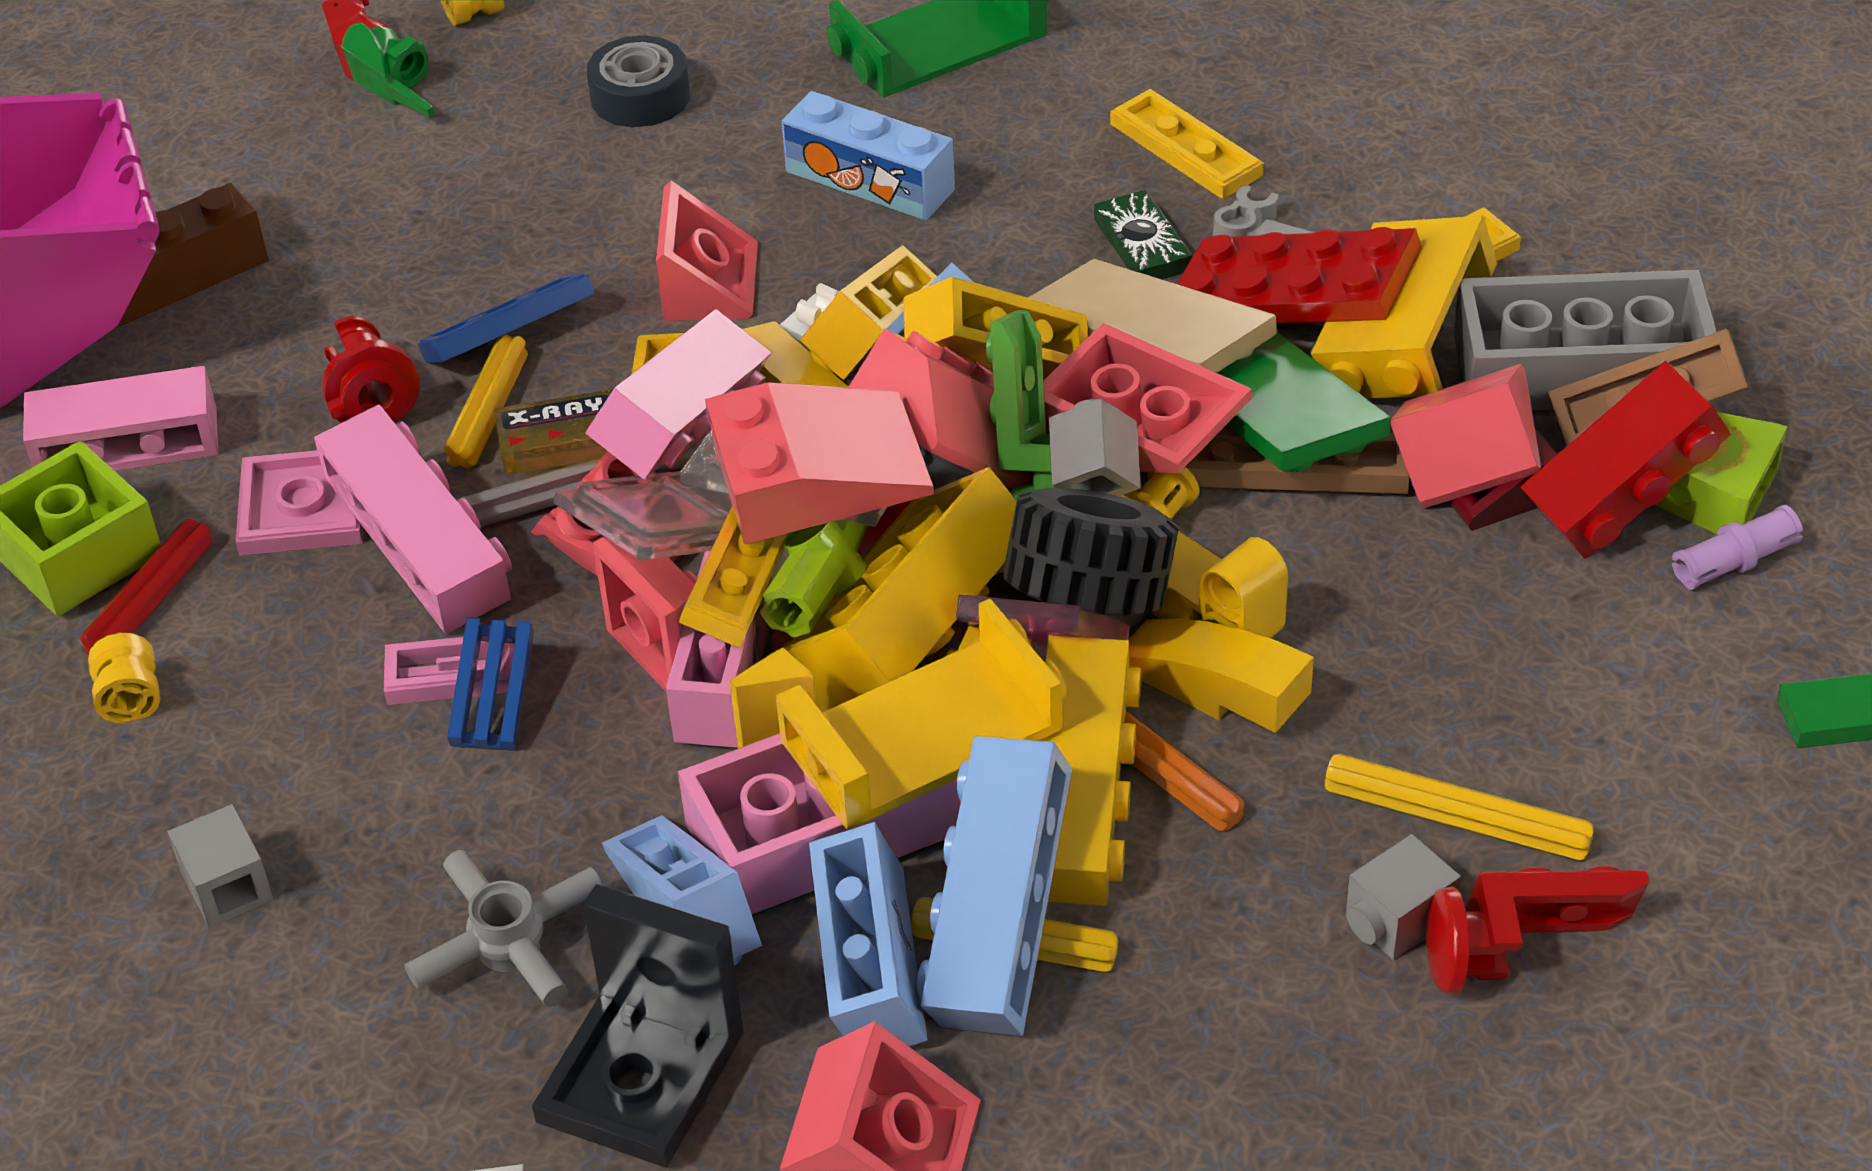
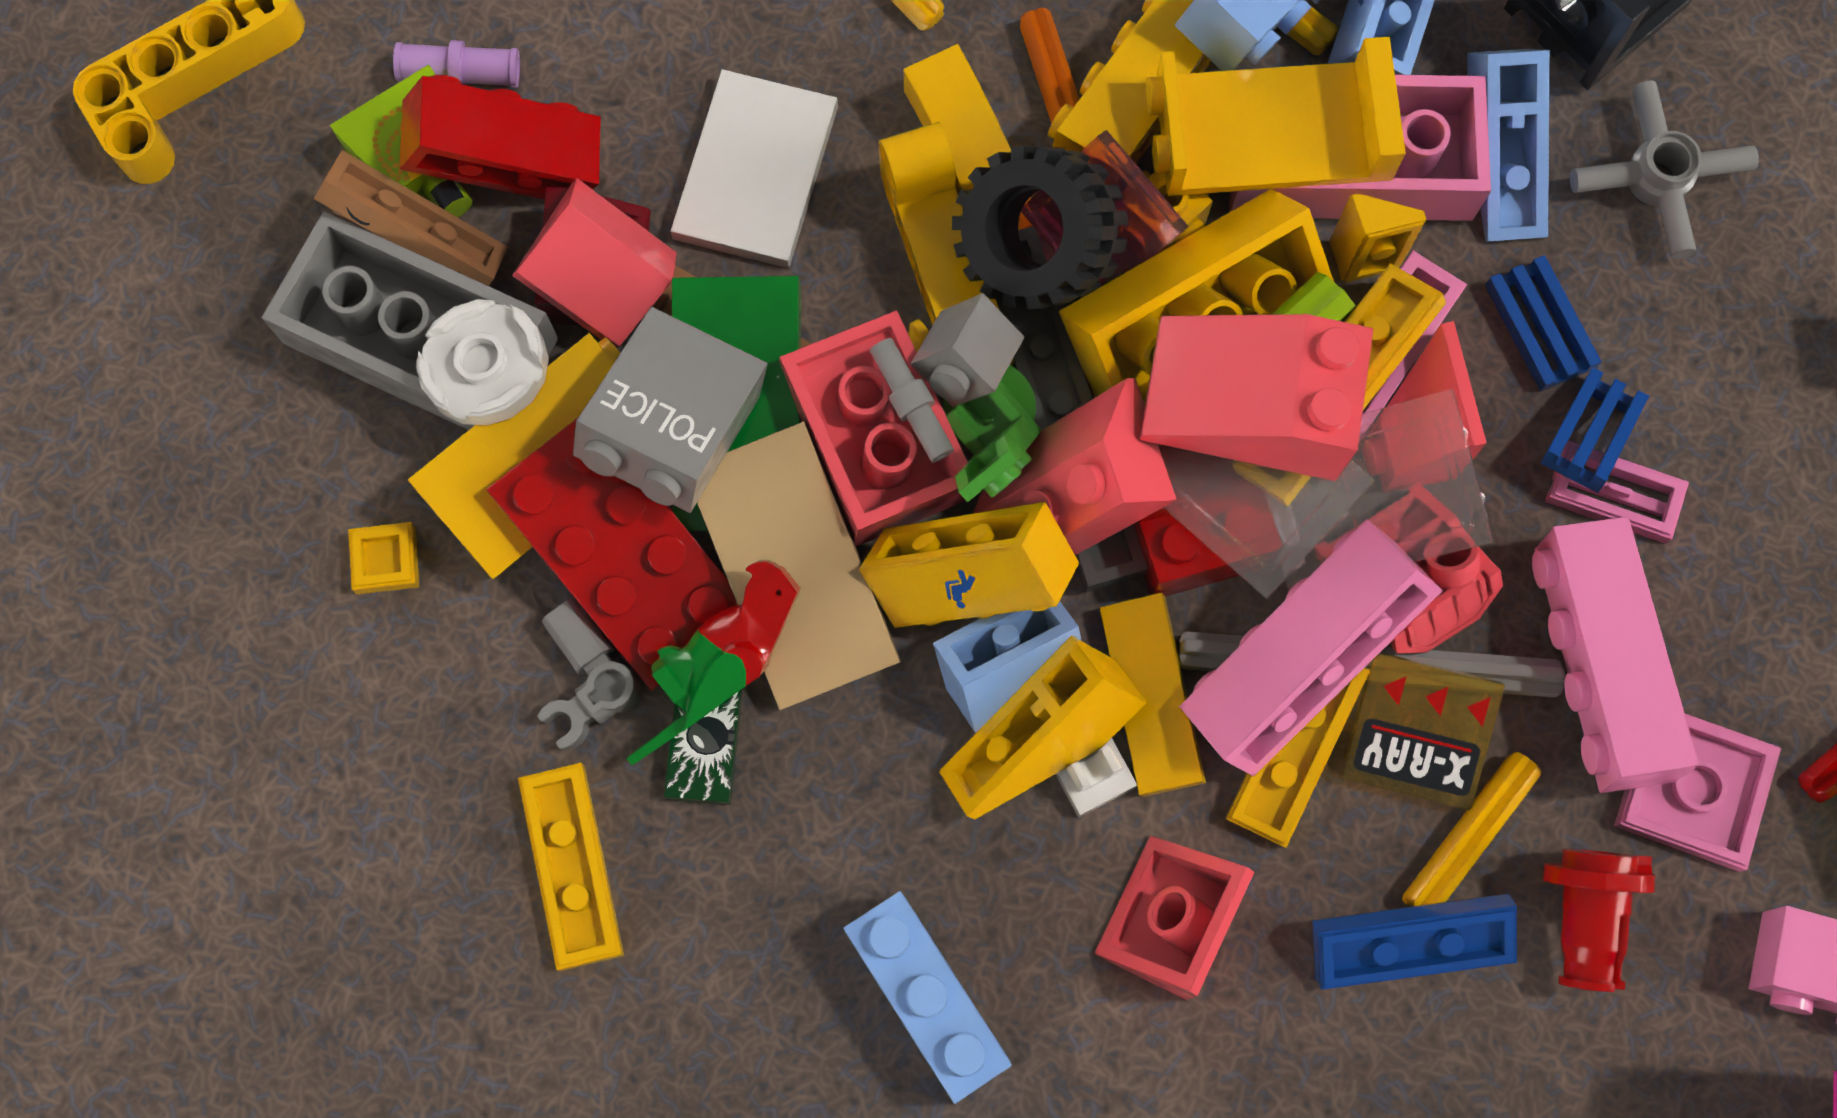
camera: 155 degrees left, 30 degrees up
(557, 726) = (1562, 310): none -> blue tile
(1120, 395) = (911, 400): none -> light grey bar
(1157, 229) = (724, 651): none -> animal
(1310, 308) = (668, 410): none -> light grey brick
(1403, 592) = (754, 169): none -> white tile
(1490, 295) = (482, 362): none -> white tile

